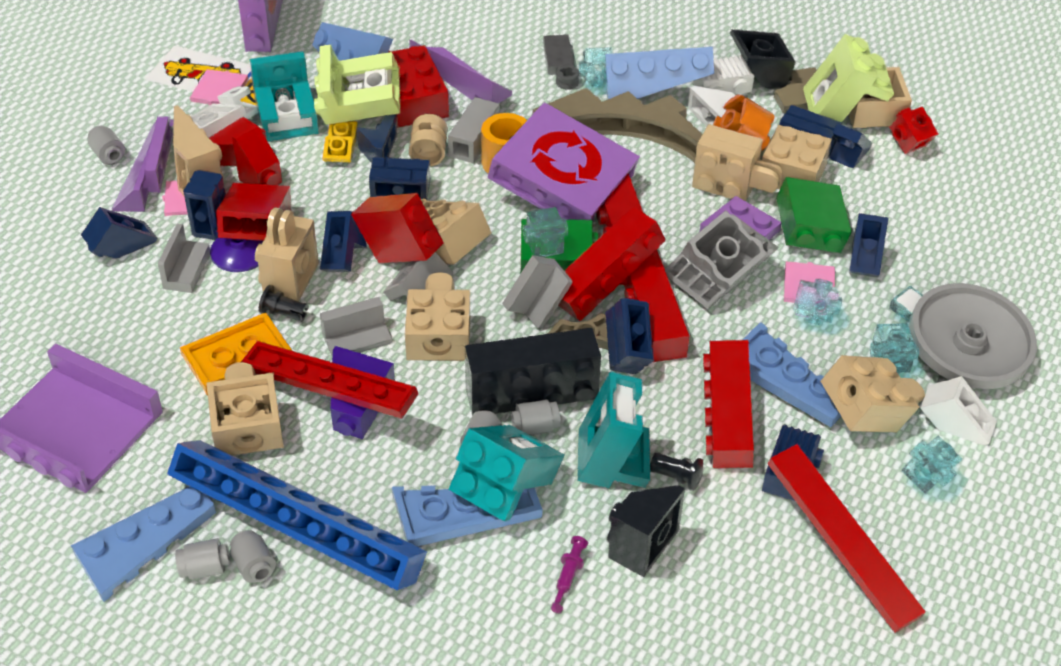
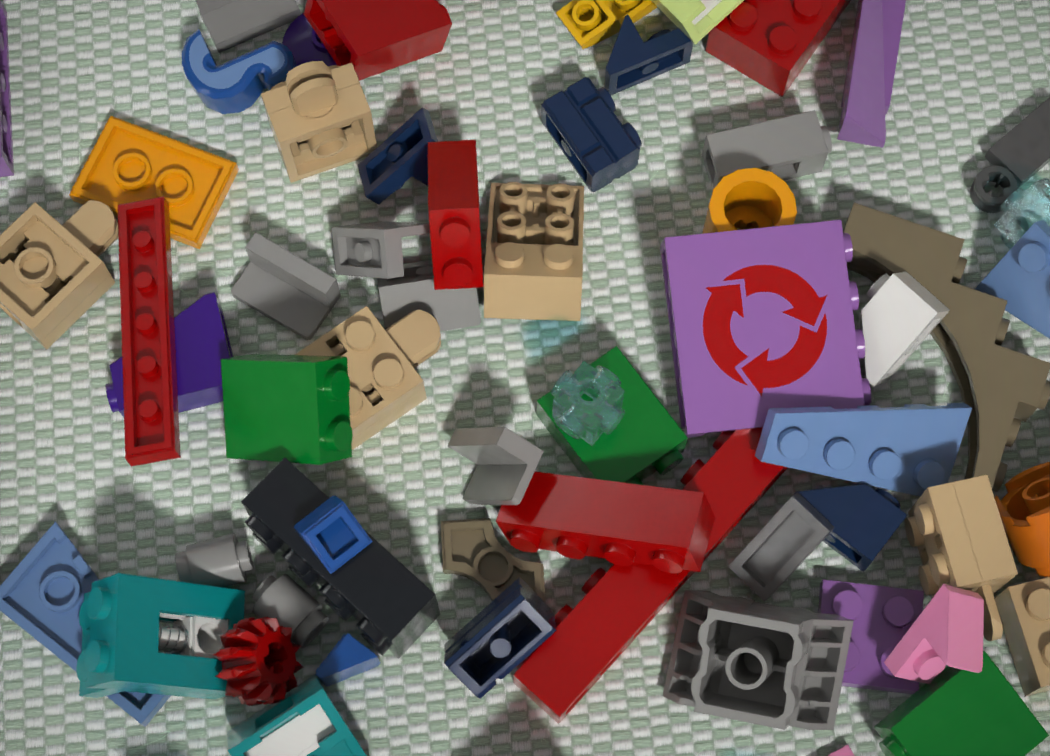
camera: 55 degrees right, 25 degrees up
(222, 288) = (237, 82): none -> blue animal
(279, 304) = (258, 168): black pin -> none
(378, 273) = (373, 248): none -> light grey panel
(428, 139) = (693, 111): tan wheel -> none
(433, 341) = (287, 408): none -> green brick
(524, 344) = (333, 533): none -> blue slope
(556, 431) = (258, 661): none -> red gear
(581, 403) = (345, 661): none -> blue slope
(605, 119) = (896, 323): none -> white slope
(654, 165) = (868, 444): none -> medium blue wing
(673, 221) = (781, 546): none -> flat silver tile
(681, 199) = (861, 519): none -> dark blue slope
(765, 179) = (942, 635): none -> bright pink slope

